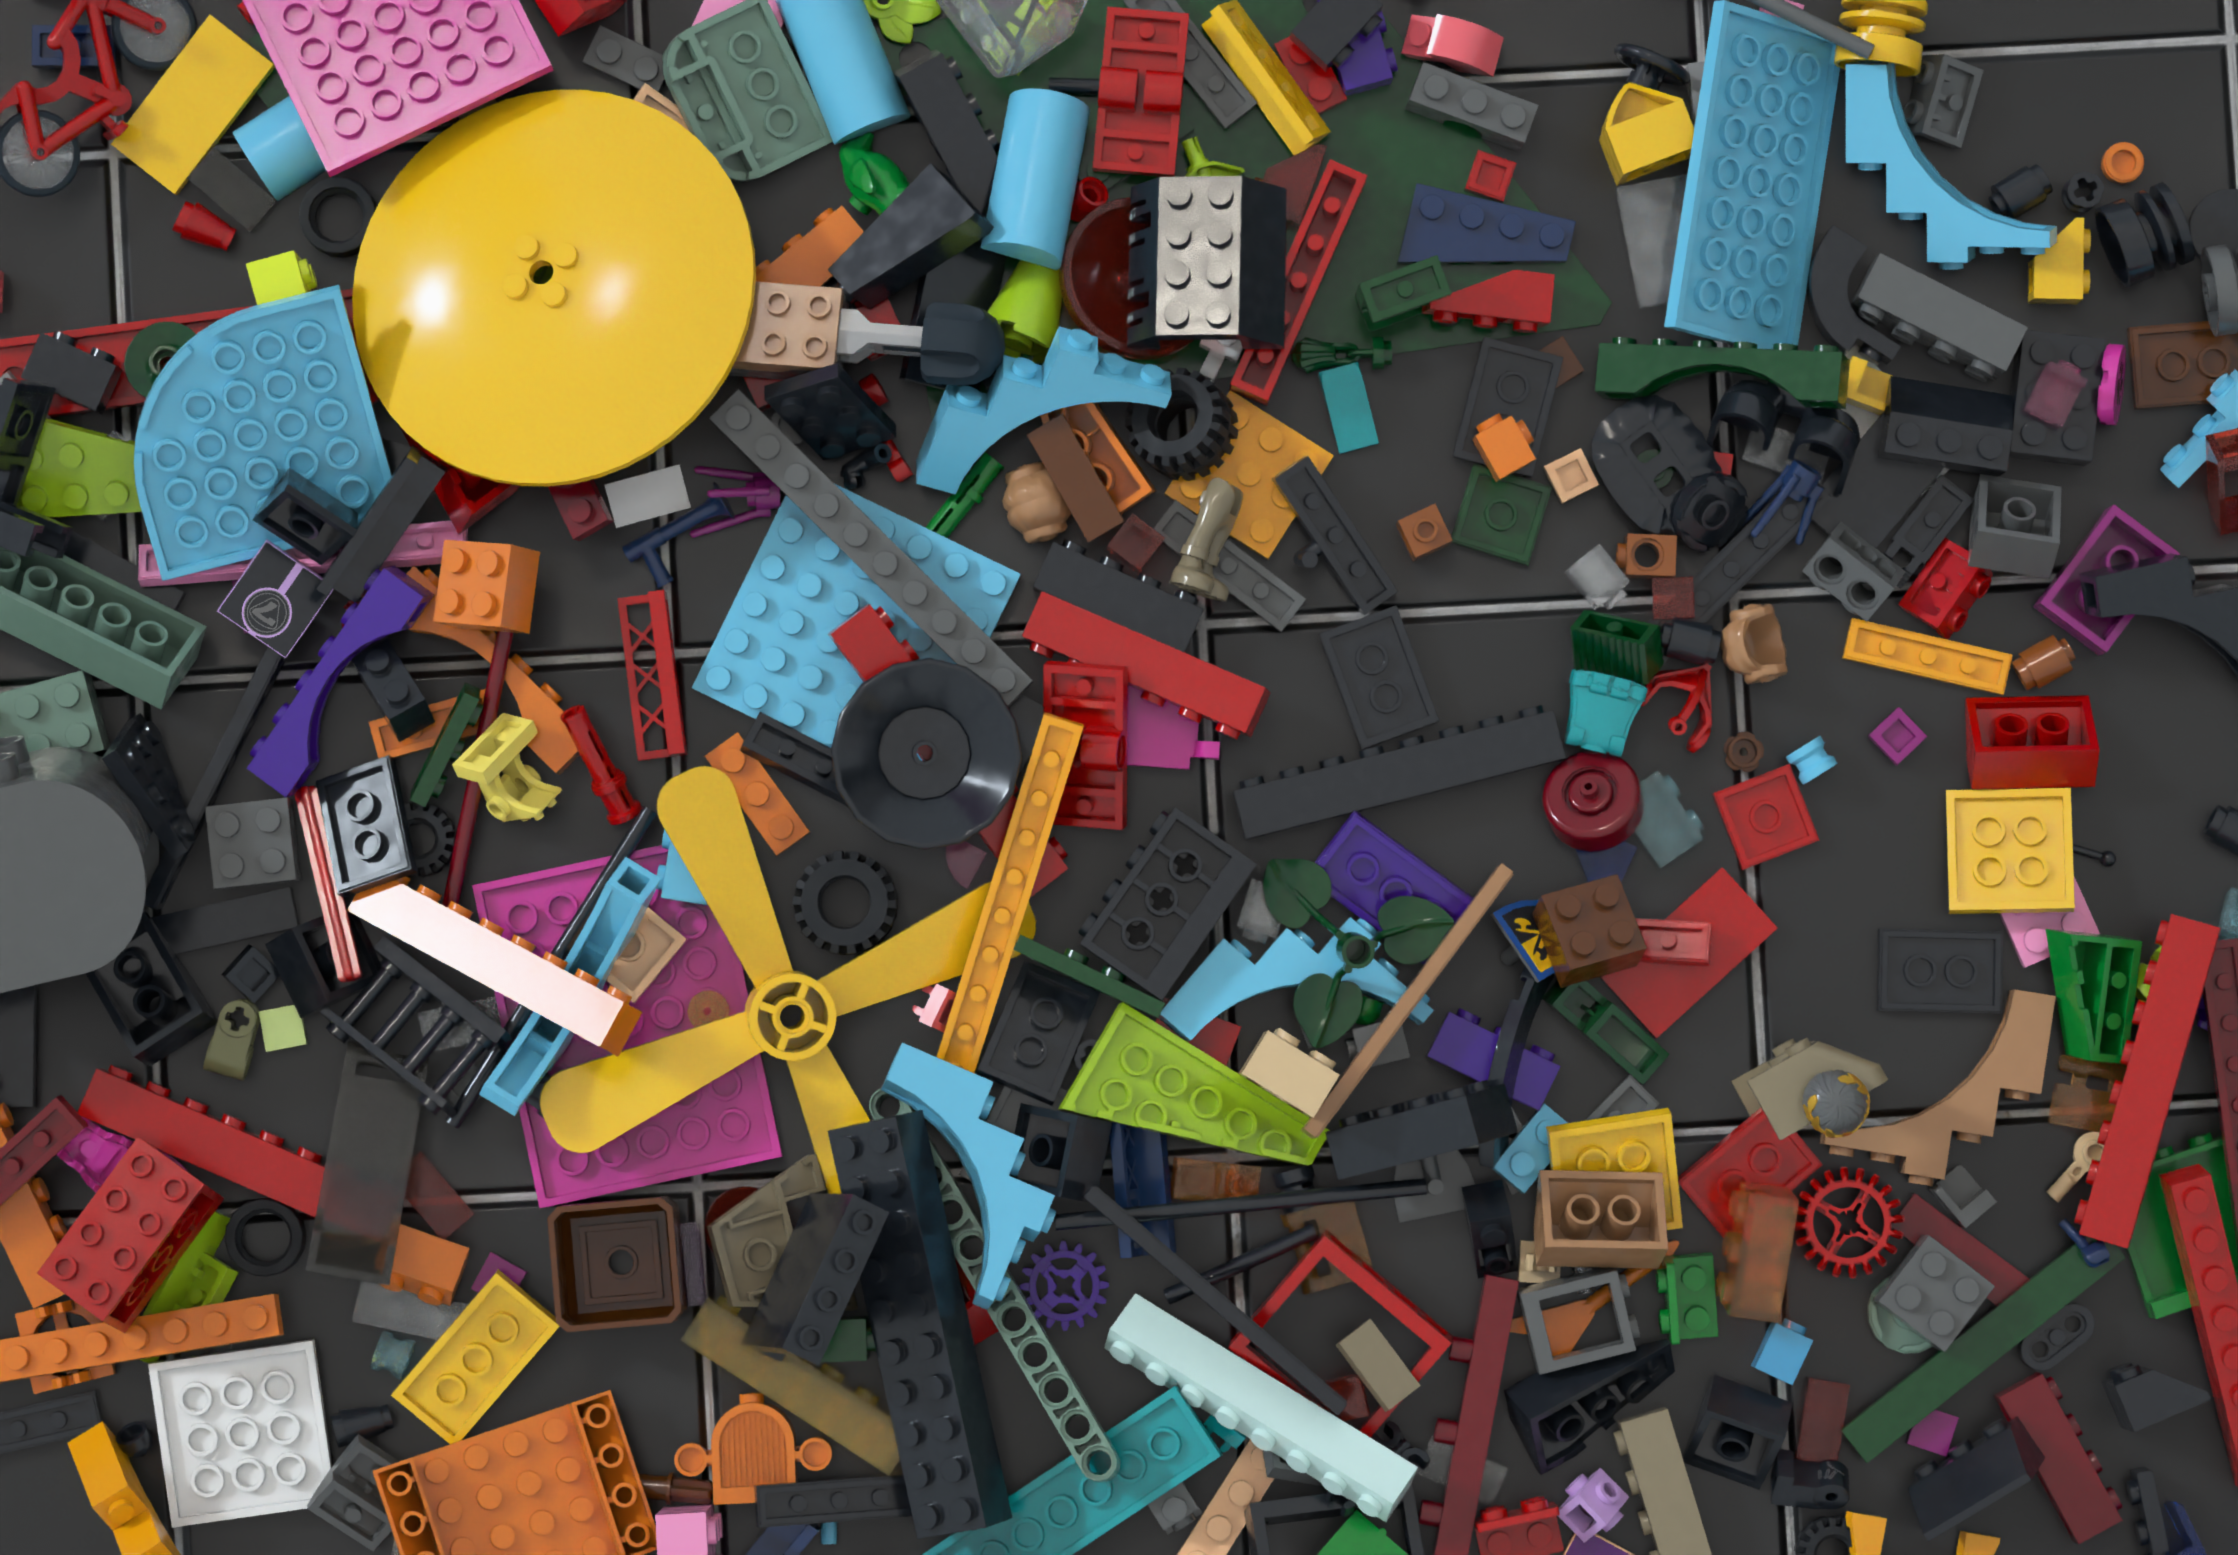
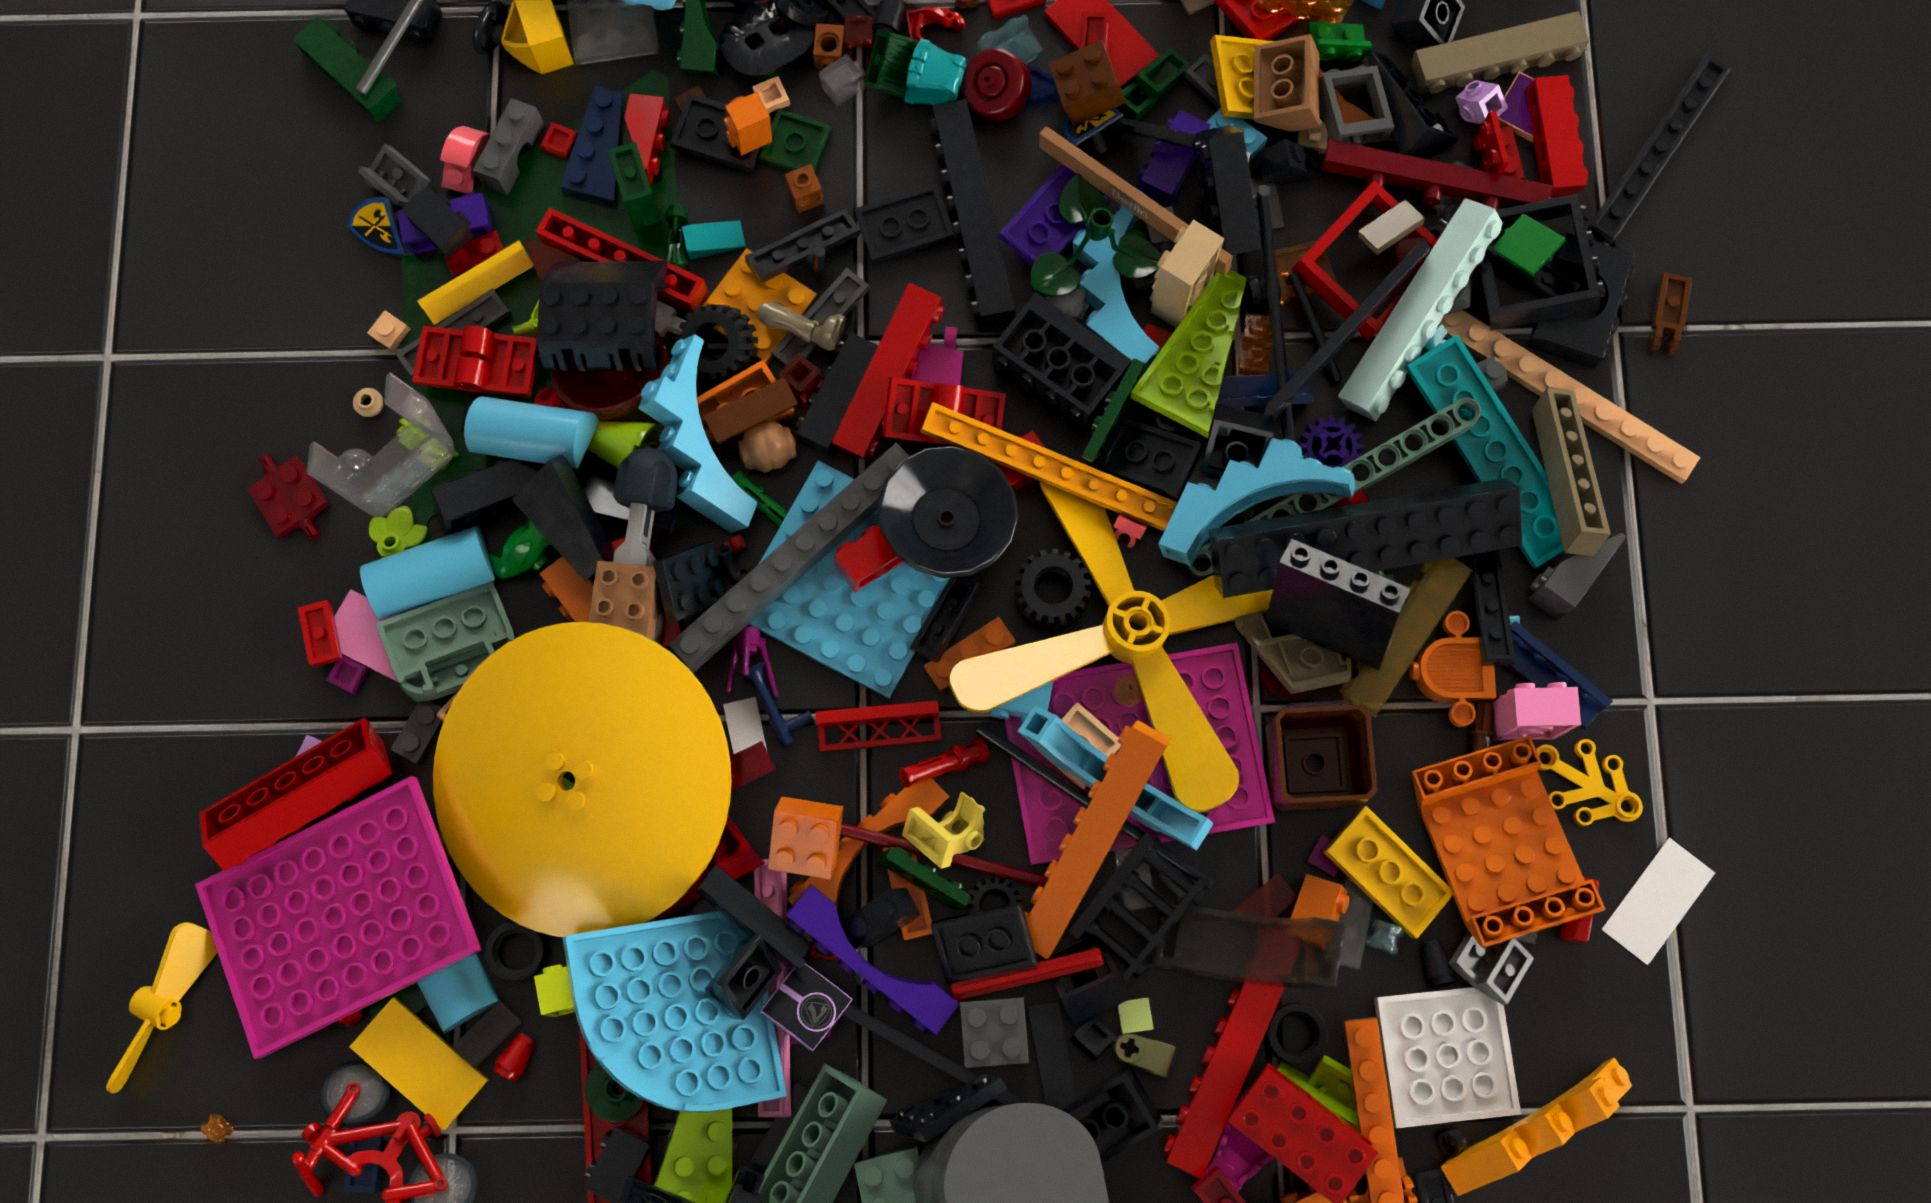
camera: 85 degrees left, 10 degrees down
(964, 862) = (1027, 509): clear pink tile -> none

